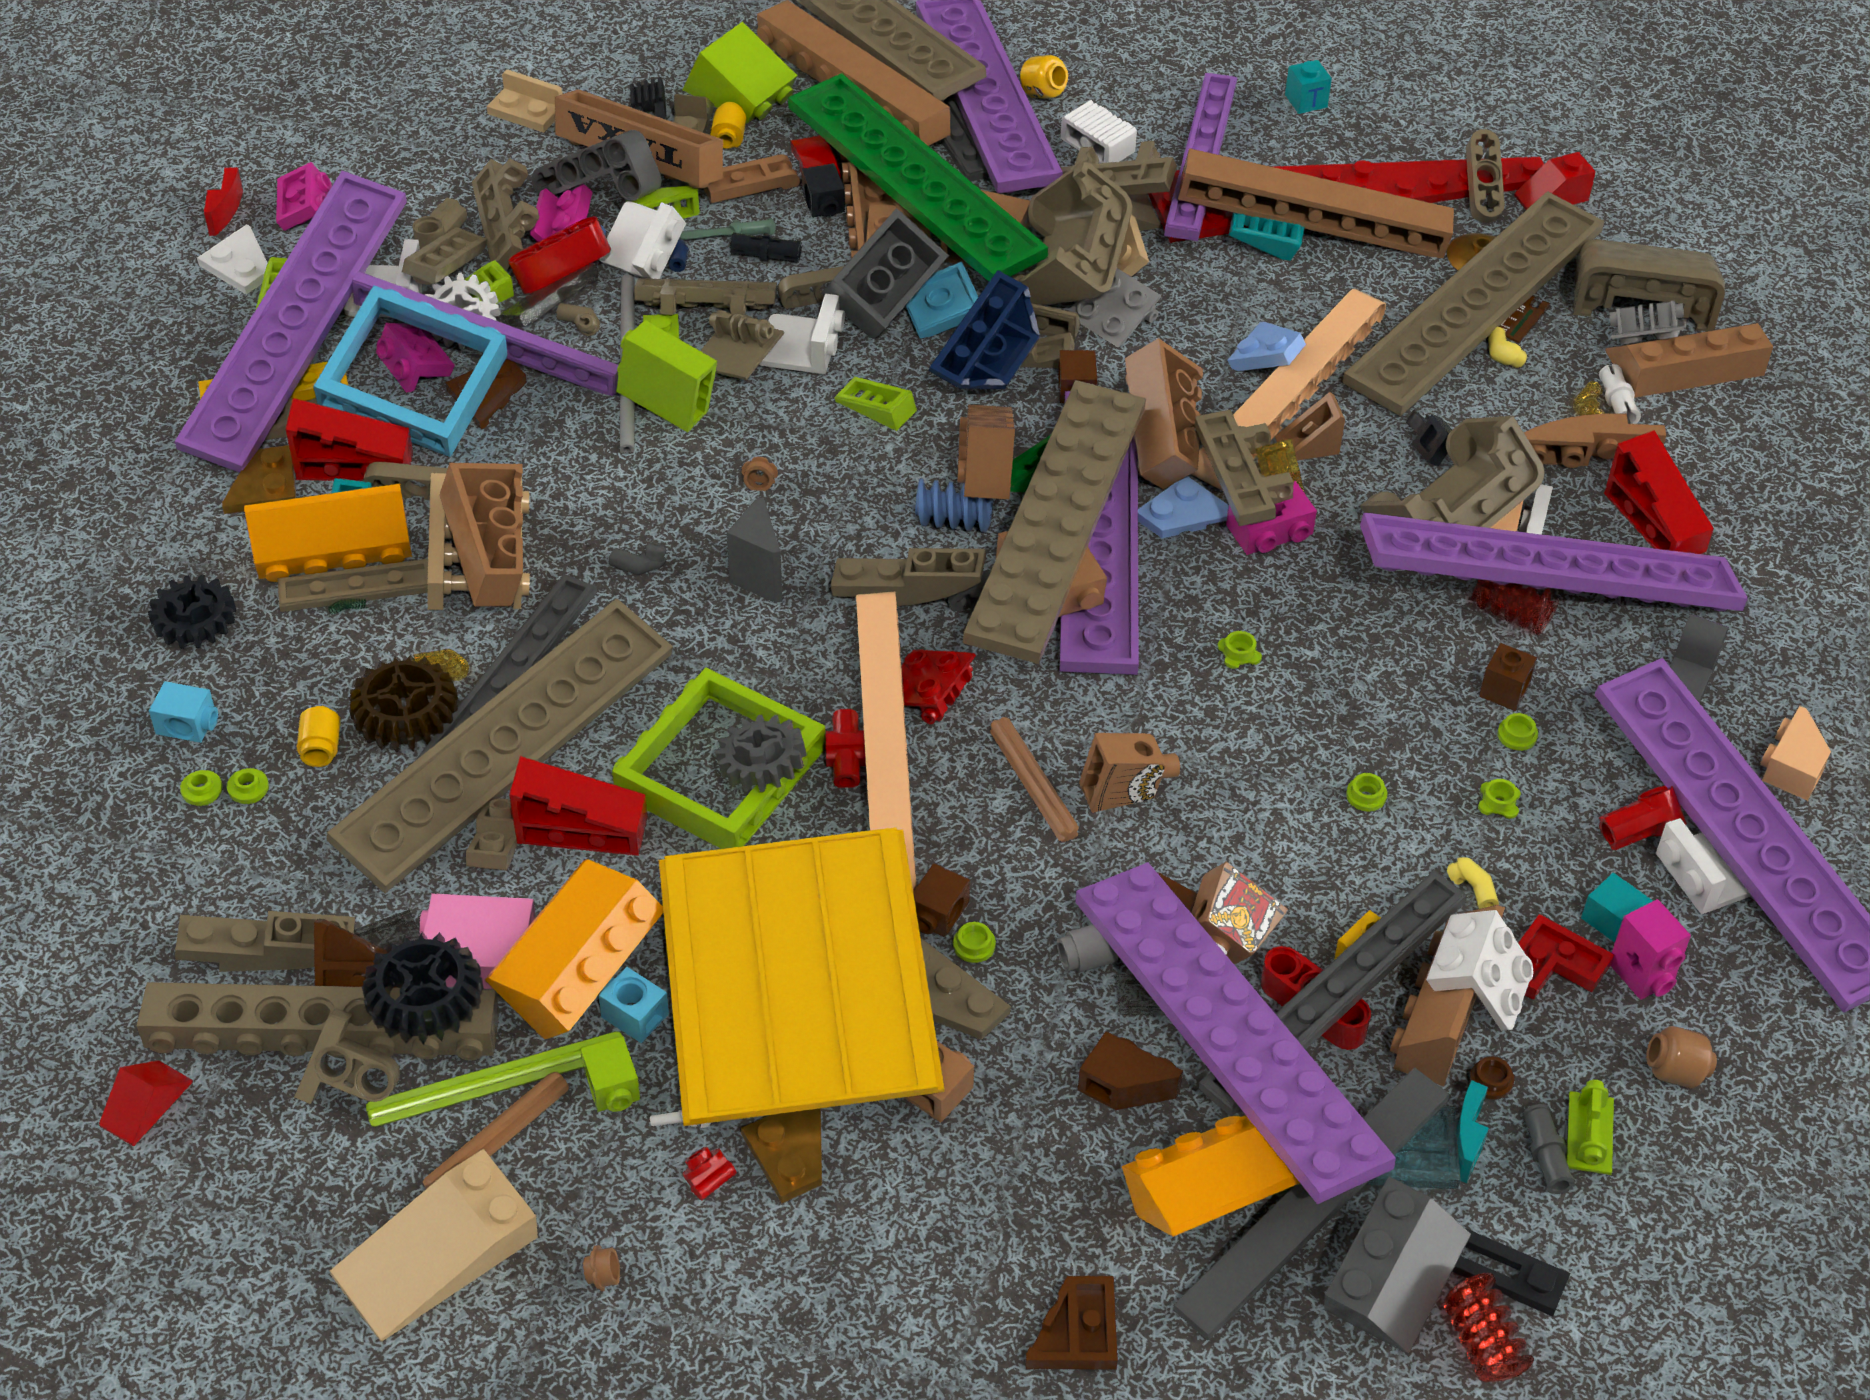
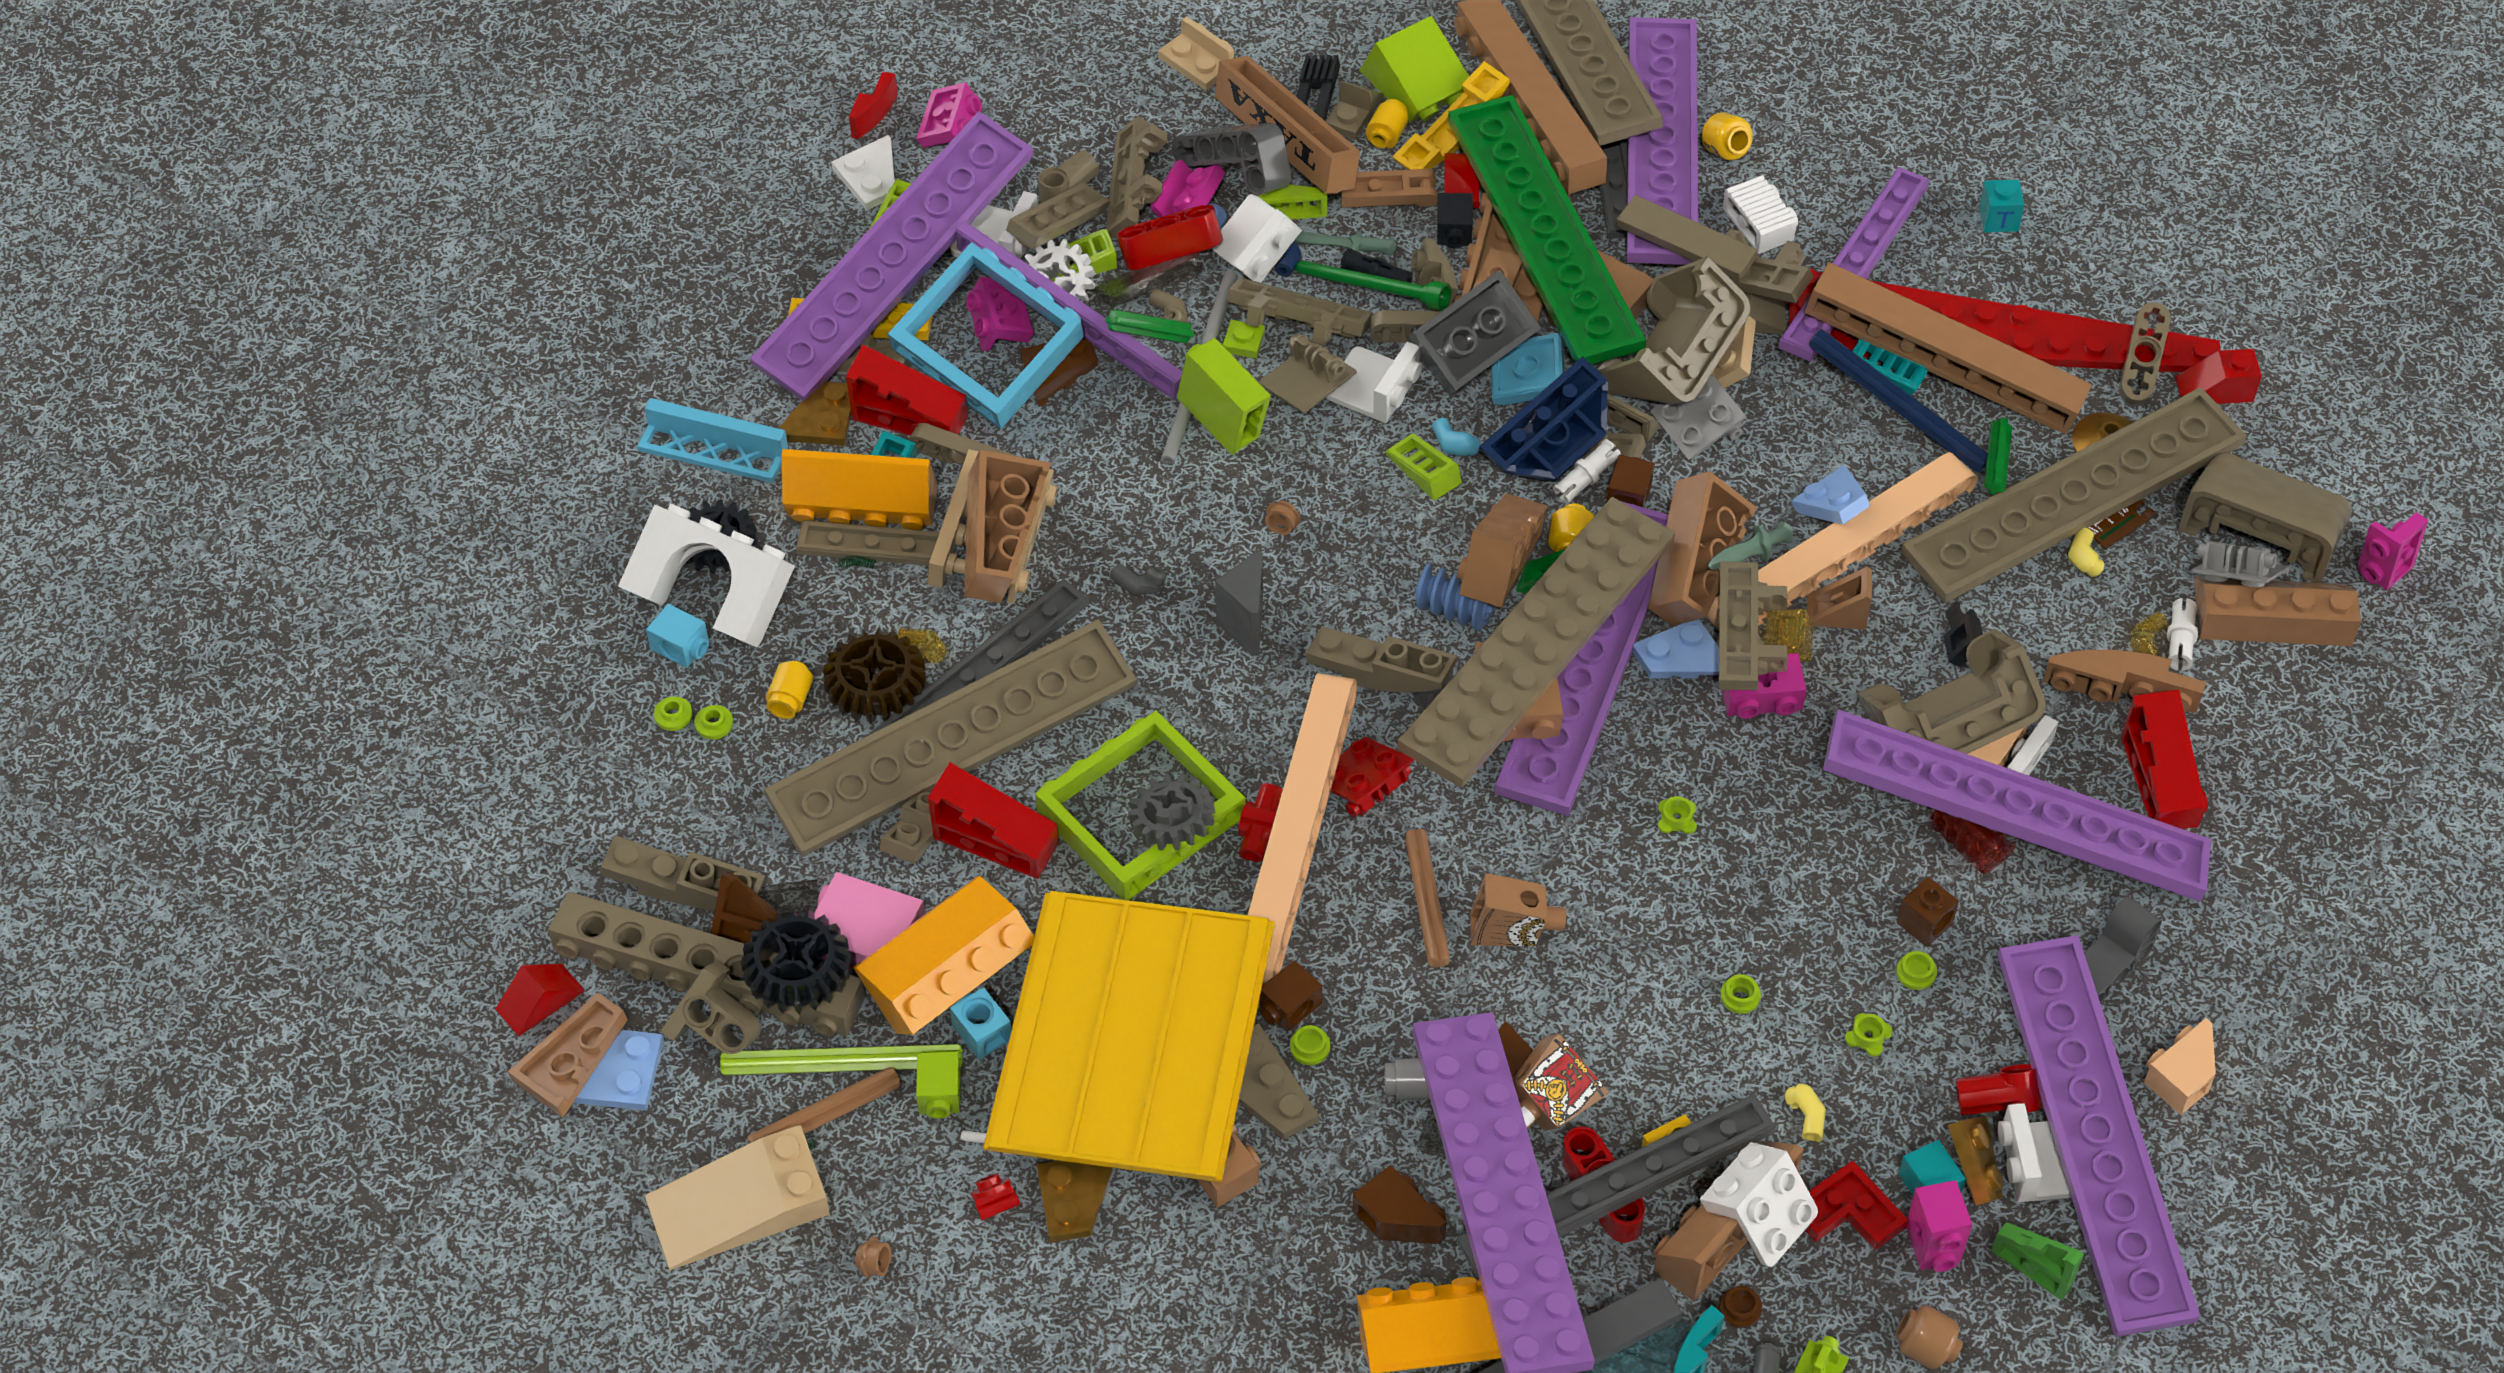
camera: 20 degrees right, 5 degrees up
(152, 616) = (673, 539): none -> white arch
(163, 518) = (715, 430): none -> medium azure fence
(199, 1149) = (569, 1055): none -> medium nougat wing
(262, 1153) = (625, 1072): none -> light blue wing
(570, 332) = (1149, 326): none -> green axle
(784, 123) = (1429, 149): none -> yellow slope
(823, 238) = (1432, 265): none -> dark tan slope
(832, 252) = (1434, 294): none -> green piece
(898, 376) = (1455, 442): none -> medium azure arm
(1032, 373) = (1586, 471): none -> white pin
(1036, 422) = (1566, 525): none -> yellow head
(1042, 156) = (1686, 237): none -> dark tan tile
(1216, 400) = (1759, 544): none -> sand green sword
(1288, 254) = (1899, 400): none -> dark blue axle
(1396, 284) = (1998, 456): none -> green axle
(1646, 869) = (1977, 1158): none -> pearl gold wing
(1751, 956) = (2039, 1258): none -> bright green wing
(1767, 286) = (2391, 553): none -> dark pink bracket

